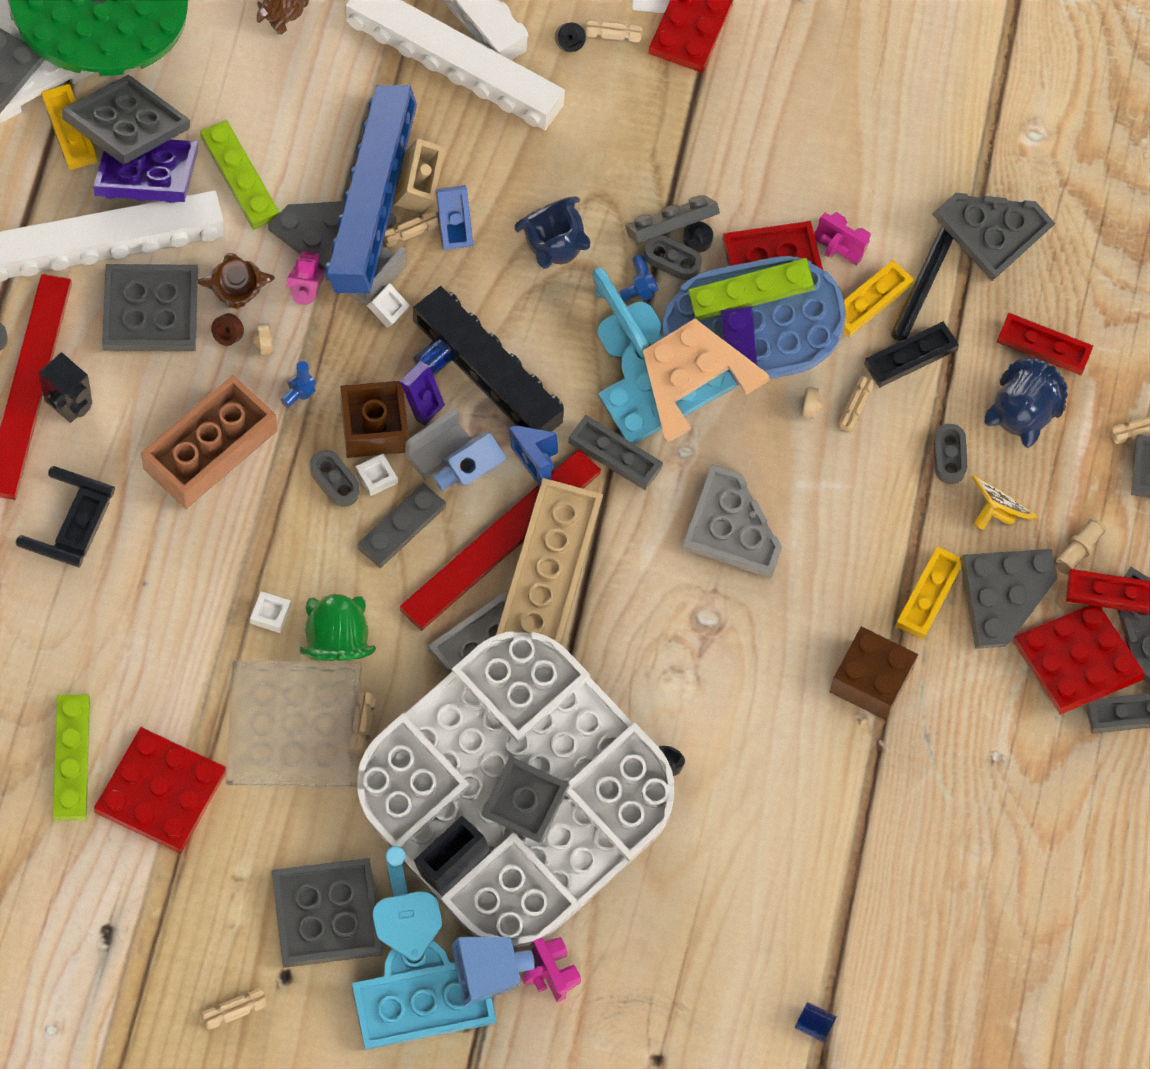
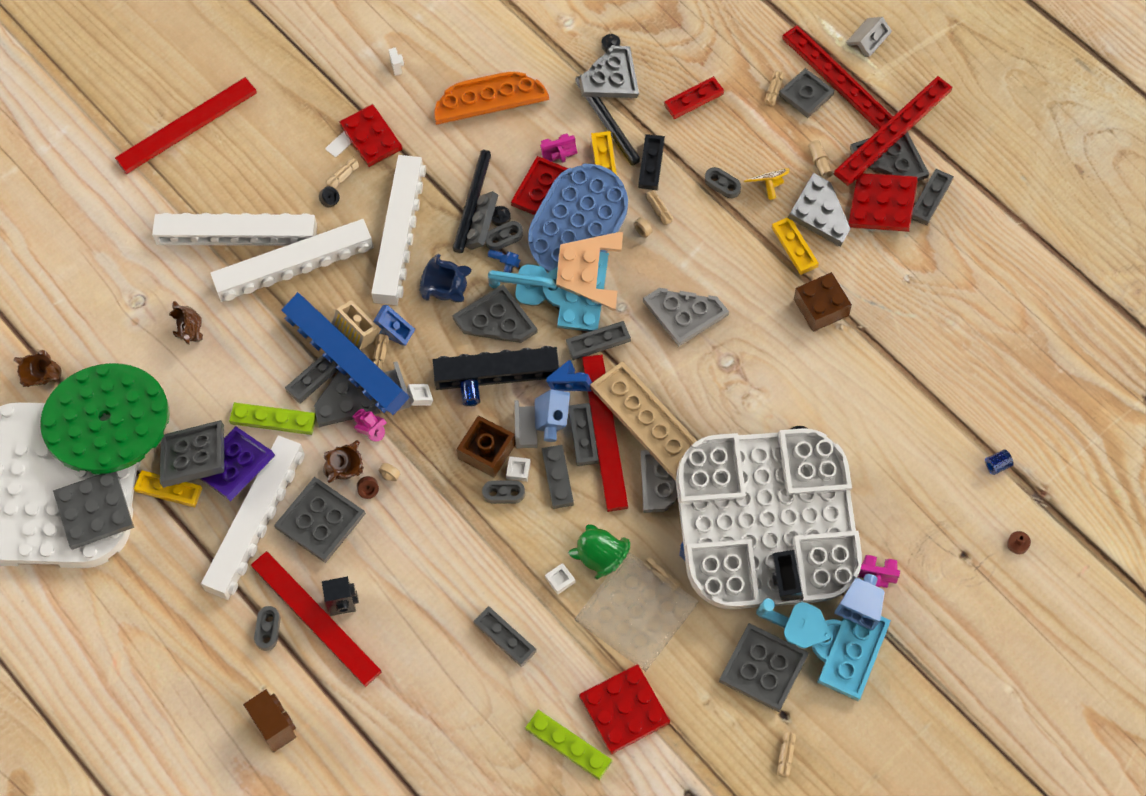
camera: 45 degrees left, 0 degrees up
(80, 523) = (425, 643): black plate -> none
(153, 599) = (505, 636): none -> dark grey plate
(209, 441) = (432, 541): nougat brick -> none
(300, 385) = (433, 472): blue piece -> none
(315, 178) = (311, 379): none -> dark grey plate
(422, 393) = (490, 410): dark purple plate -> none
(476, 516) = (583, 434): none -> dark grey plate
(525, 799) = (782, 516): dark grey plate -> none
(555, 321) = (496, 317): none -> dark grey plate
(585, 138) = (397, 230): none -> white brick
(703, 187) = (471, 202): none -> black axle
(740, 331) = (580, 230): dark purple plate -> none
(752, 289) = (562, 207): lime plate -> none
(850, 114) = (488, 95): none -> orange plate
(1028, 399) = (721, 125): dark blue hair -> none
(1046, 198) = (609, 40): none -> black tile

